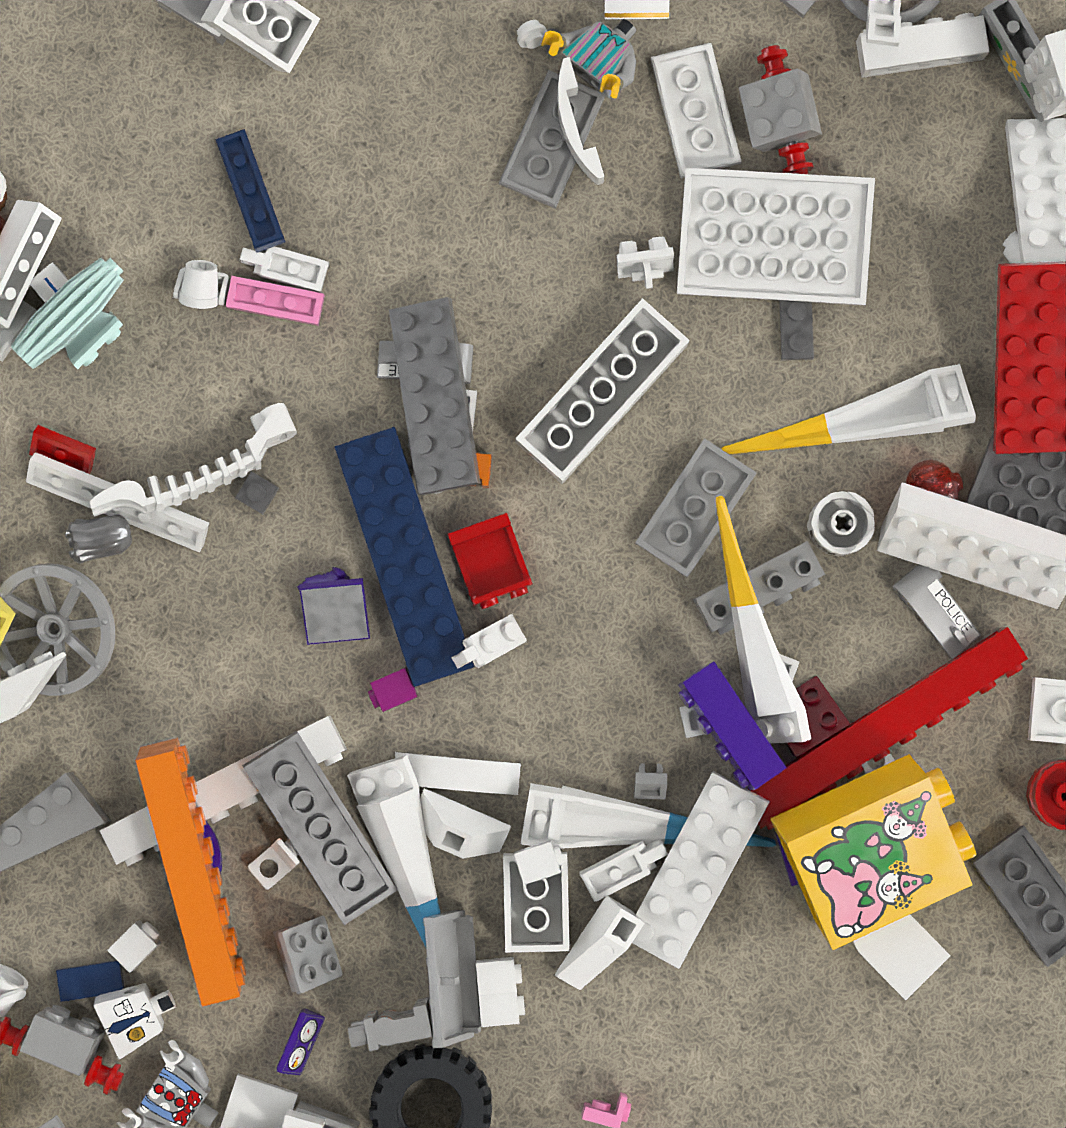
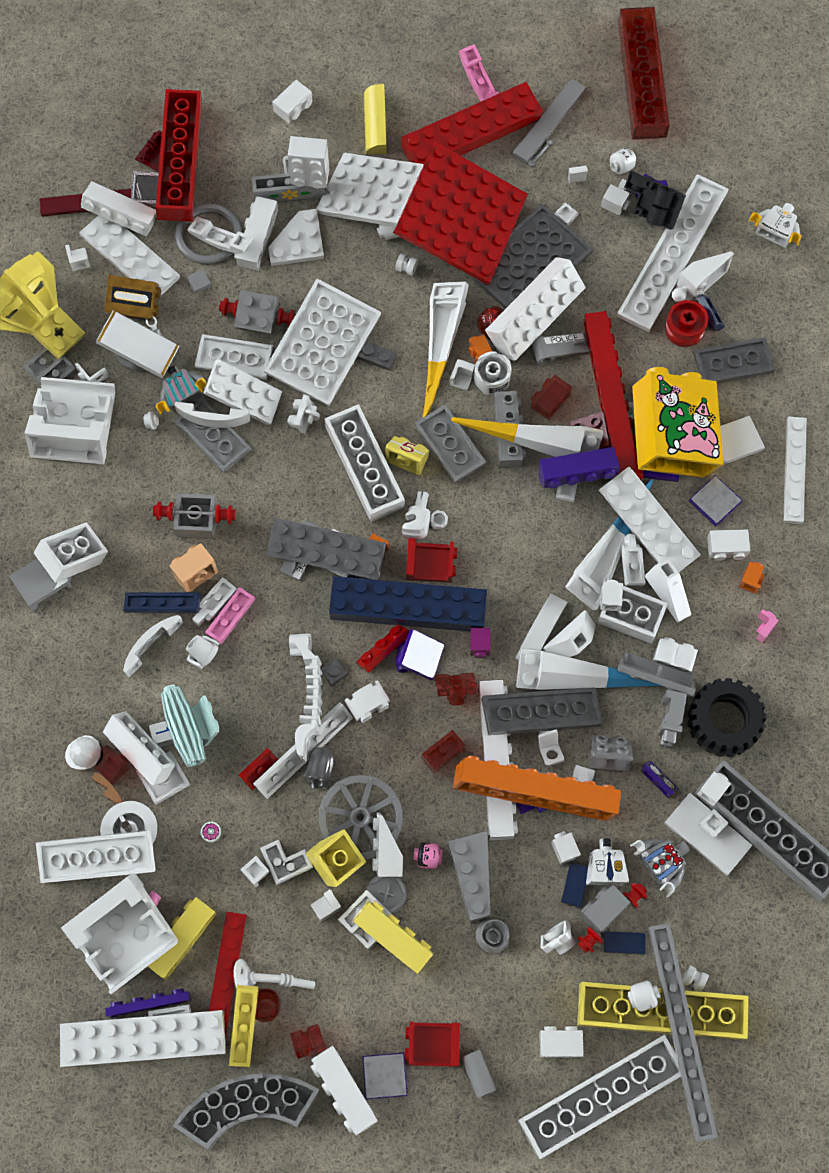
camera: 65 degrees left, 15 degrees down
(37, 1086) = (624, 942): none -> dark blue tile
(40, 751) = (428, 855): none -> bright pink head
(144, 192) = (168, 626): none -> white slope
(198, 707) = (443, 751): none -> clear red brick
(225, 564) = (367, 701): none -> white brick
(254, 927) = (583, 774): none -> white plate
(304, 683) = (456, 687): none -> clear red plant
(318, 212) = (193, 568): none -> light nougat brick
(321, 550) = (383, 648): none -> red plate
(403, 173) = (195, 515): none -> light grey brick
(490, 643) = (477, 576): white hinge -> none
(555, 515) = (419, 527): none -> white piece
(562, 544) = (438, 520): none -> white tile
(632, 152) = (242, 392): none -> white plate
(646, 450) = (406, 455): none -> light yellow slope
(650, 784) = (592, 528): light grey tile -> none
(678, 1061) = (752, 577): none -> orange brick
(715, 1005) = (728, 544): none -> white brick
(782, 956) = (715, 500): none -> flat silver tile
(819, 477) = (462, 375): none -> white panel
(843, 631) = (551, 396): none -> clear red brick
(876, 484) = (478, 346): none -> orange brick
(890, 1061) = (795, 470): none -> white plate
(942, 116) = (298, 240): none -> white plate
(973, 306) = (406, 264): none -> white wheel

